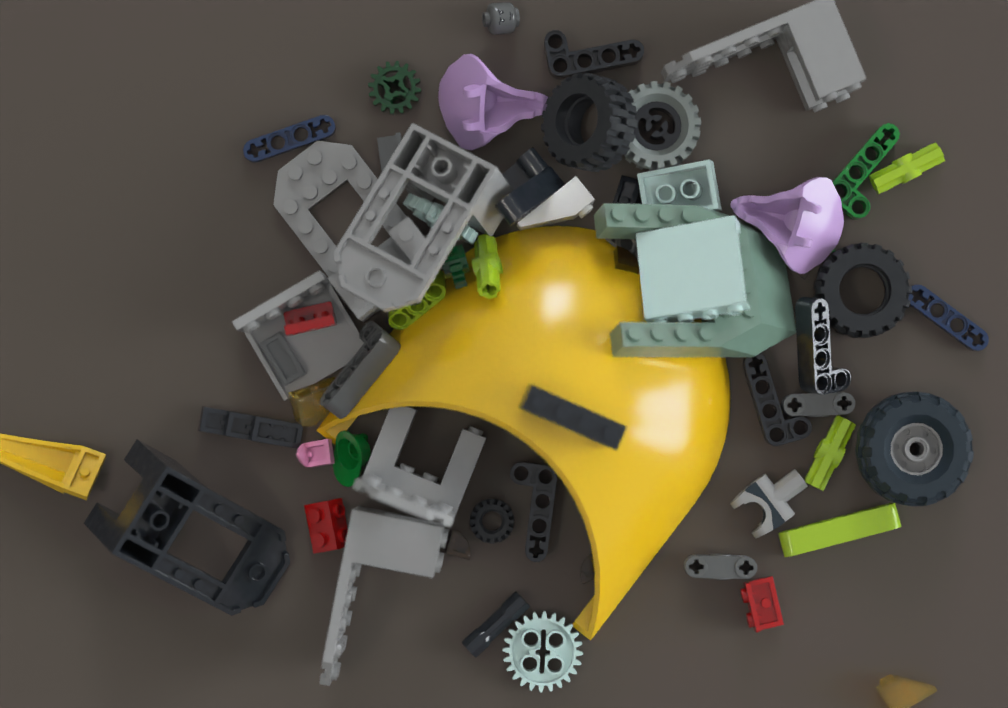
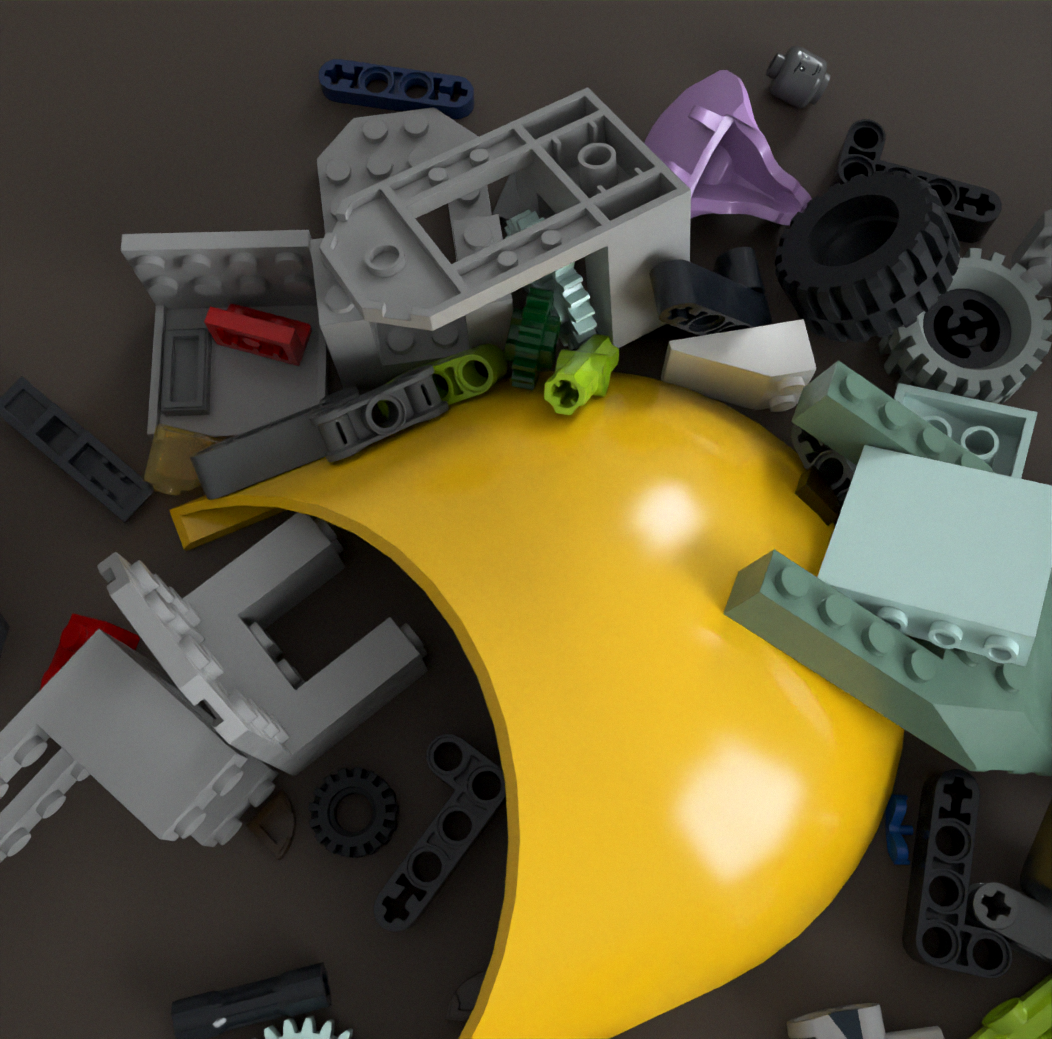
camera: 30 degrees right, 15 degrees down
(316, 453) = (141, 539): bright pink plate -> none
(350, 455) = (197, 561): green piece -> none
(391, 347) = (349, 424): none -> dark grey piece
(400, 77) = (595, 74): dark green gear -> none
(572, 416) = (594, 668): black arch -> none
(738, 392) = (894, 830): none -> blue piece

